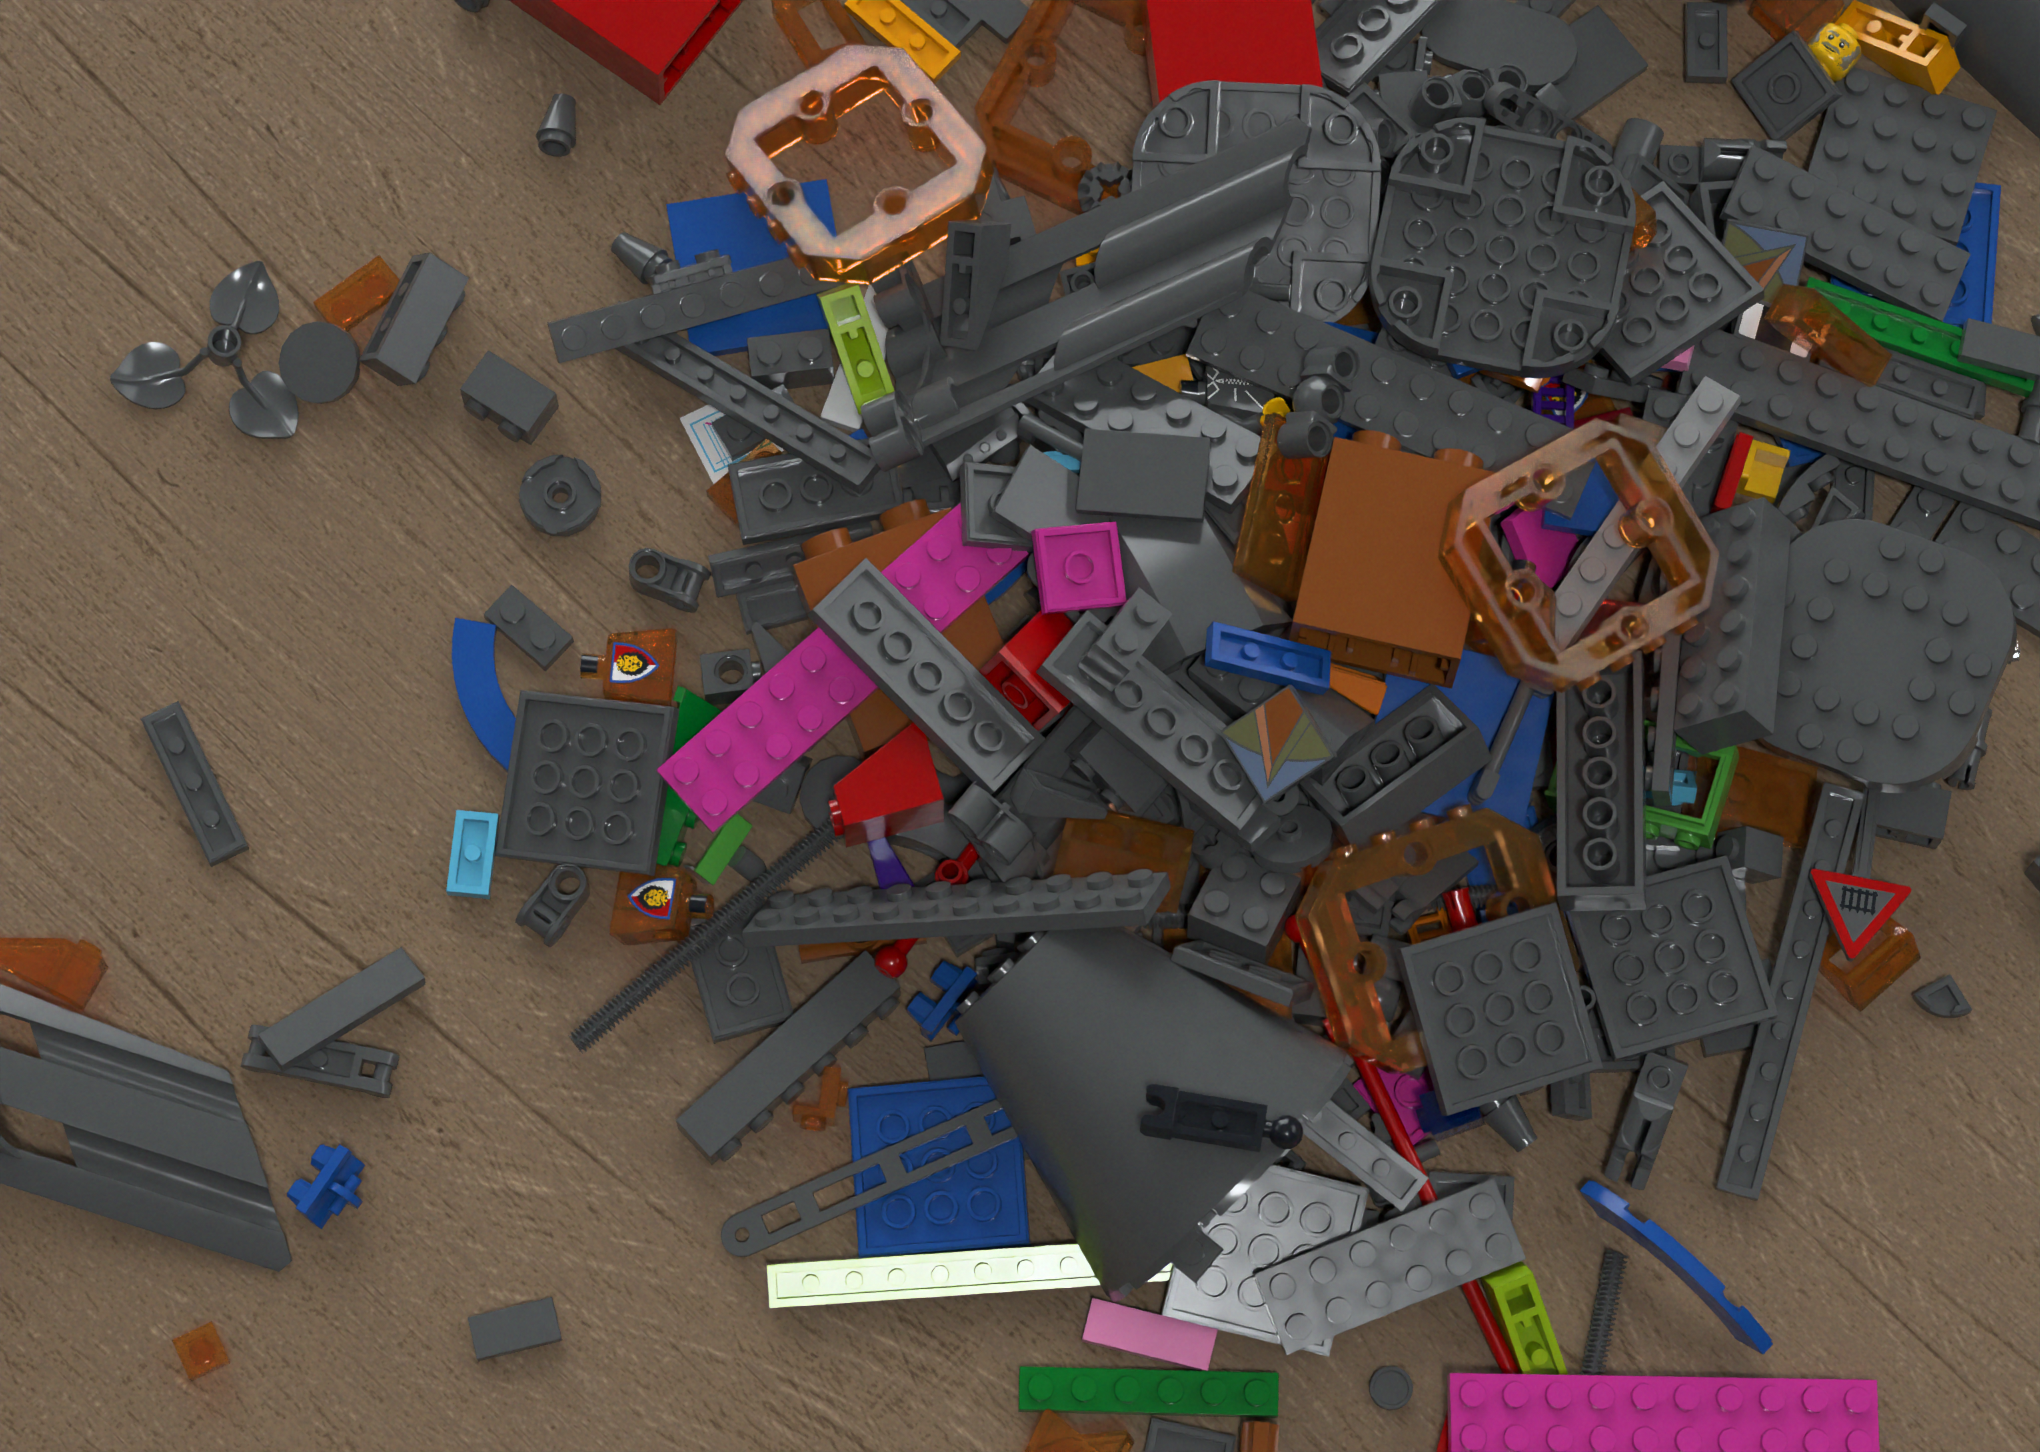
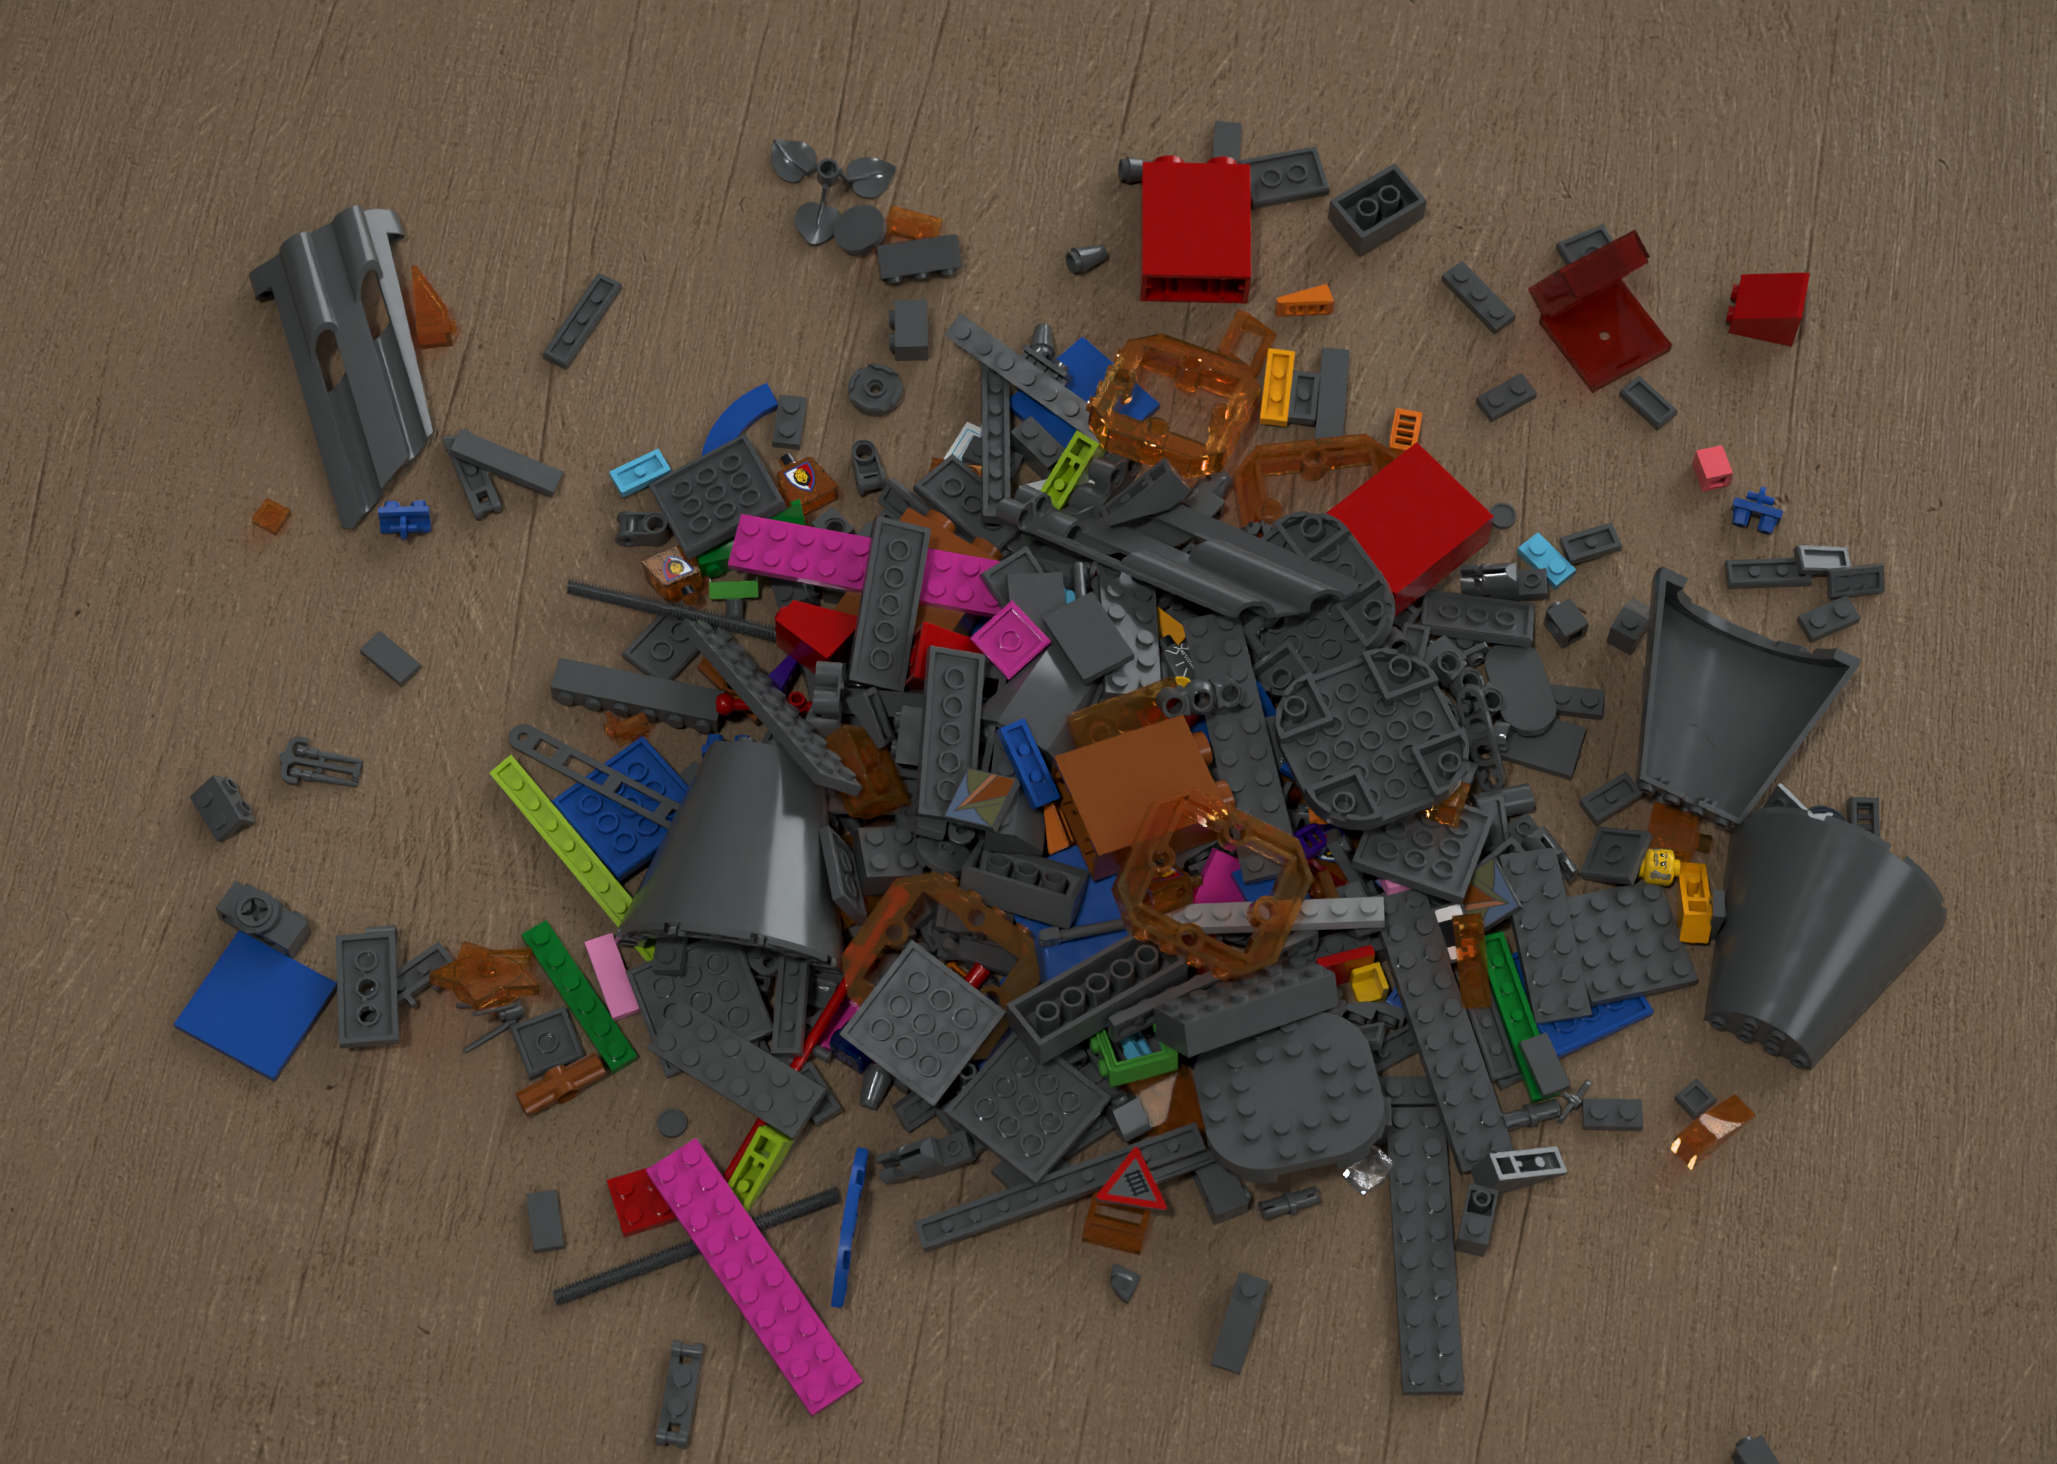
camera: 55 degrees right, 10 degrees down
(1125, 639) = (978, 679): dark grey brick -> none
(1216, 1120) = (728, 888): black plate -> none

